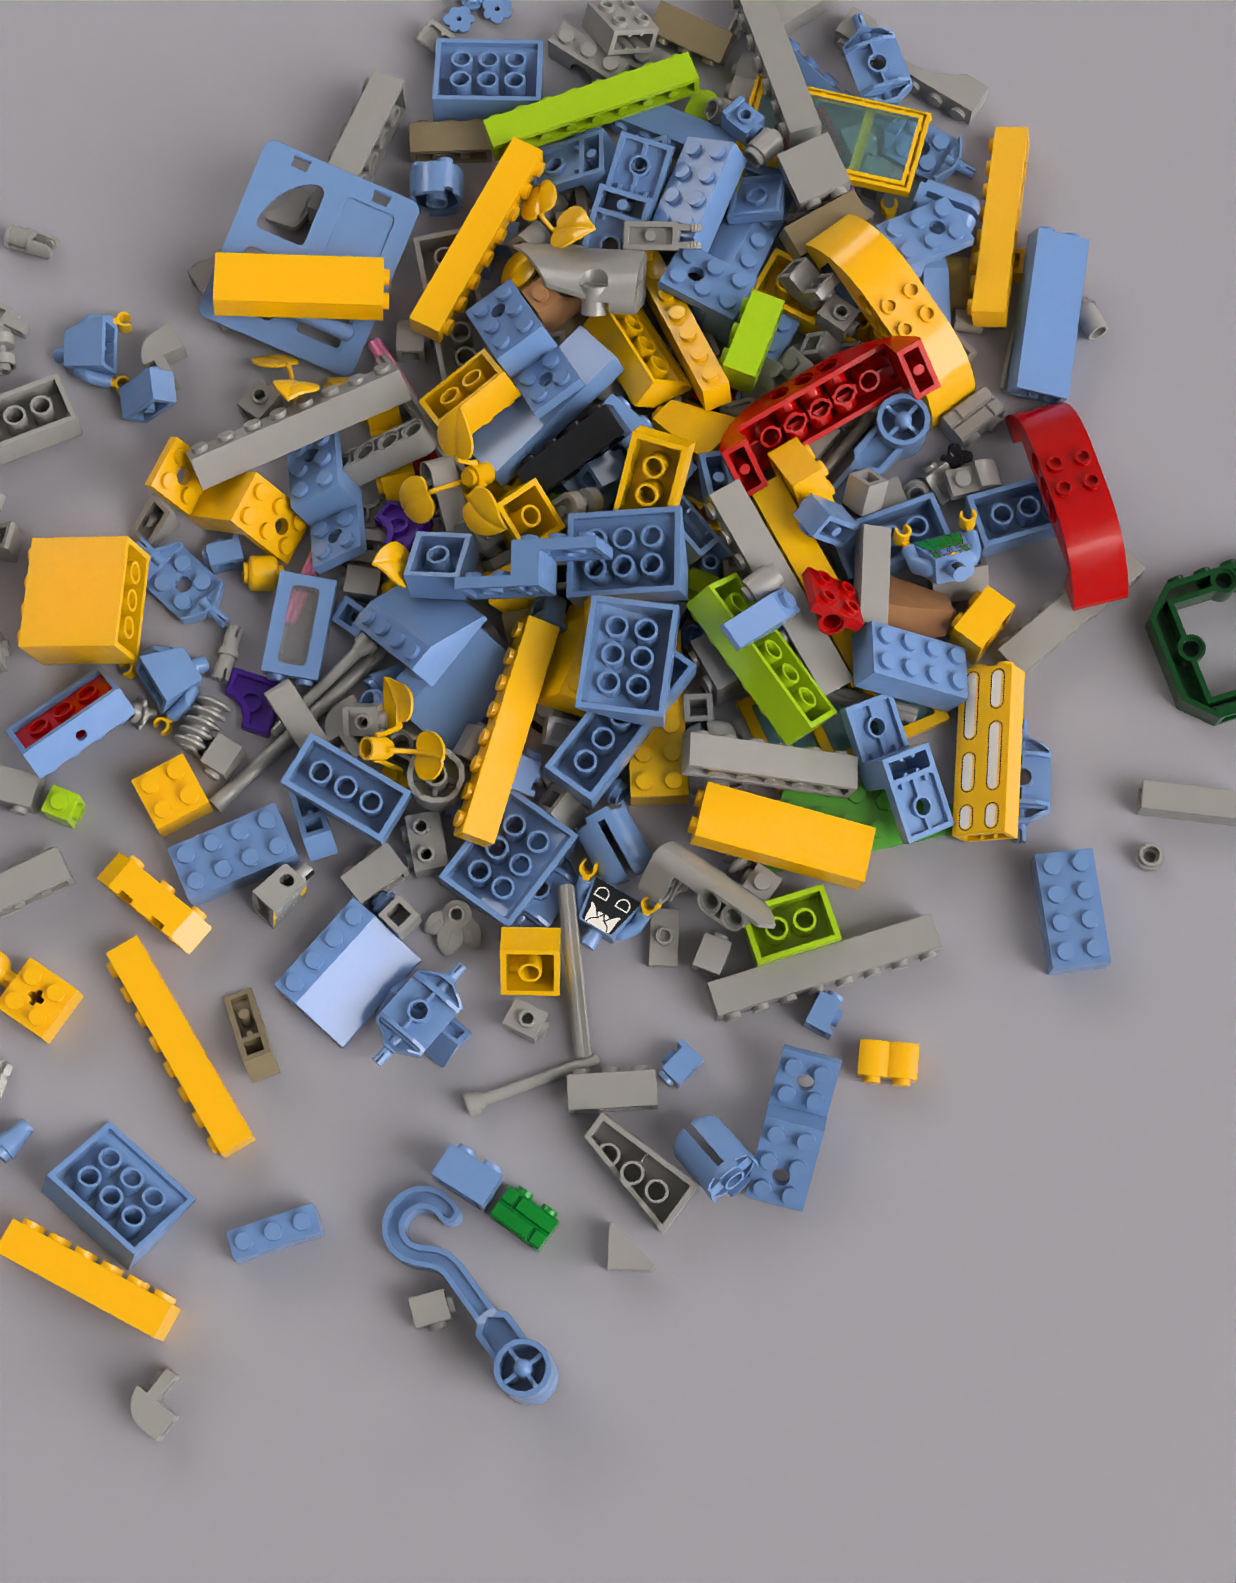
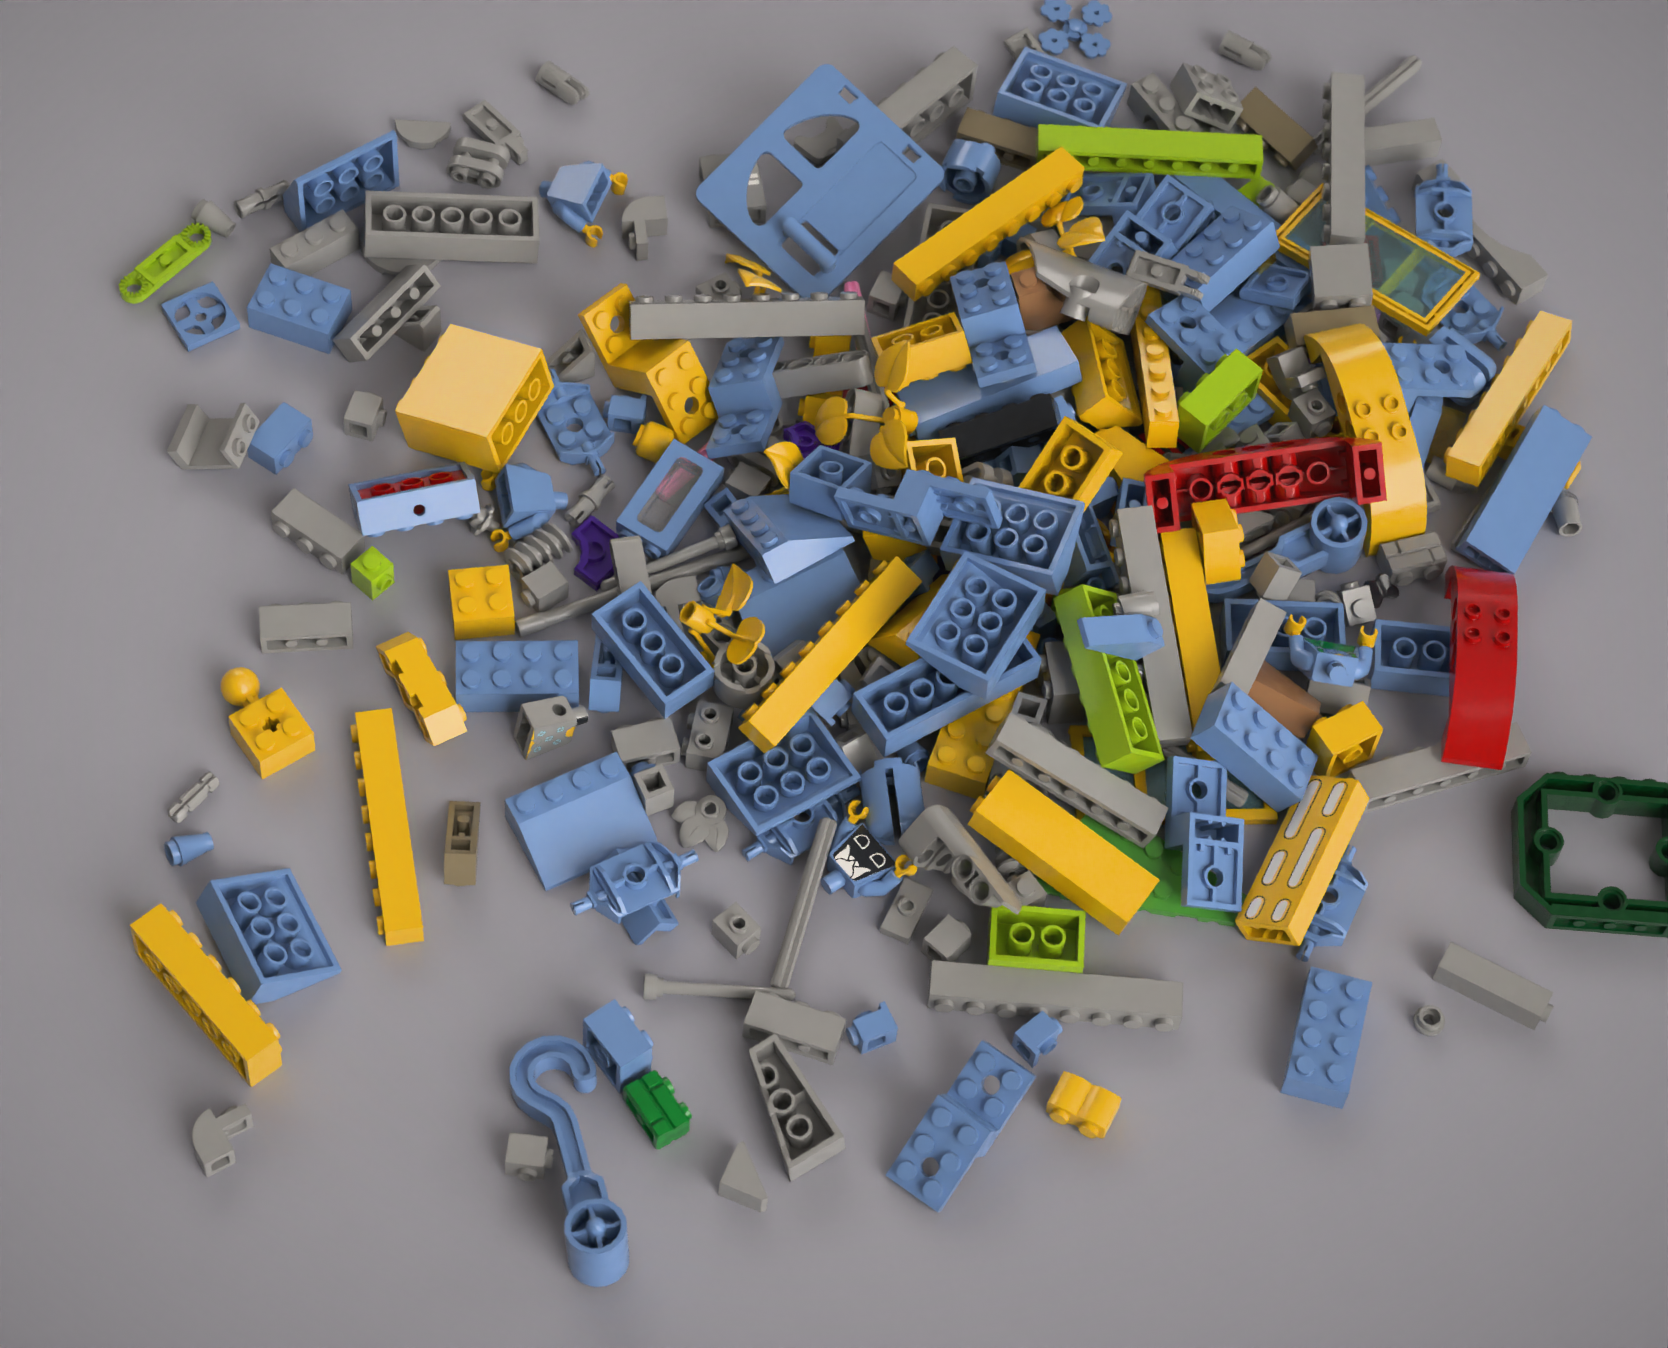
camera: 15 degrees right, 15 degrees down
(148, 395) = (614, 248): medium blue brick -> none
(275, 1233) = (405, 1027): medium blue brick -> none
(300, 286) = (801, 200): yellow brick -> none
(372, 712) = (686, 590): light grey brick -> none
(530, 961) = (764, 873): yellow brick -> none
(715, 1180) = (881, 1123): medium blue cylinder -> none
(742, 121) = (1289, 212): medium blue brick -> none
(763, 147) = (1298, 240): light grey brick -> none
(825, 521) = (1224, 582): medium blue brick -> none
(832, 602) = (1199, 652): red plate -> none
(972, 478) = (1396, 607): light grey brick -> none

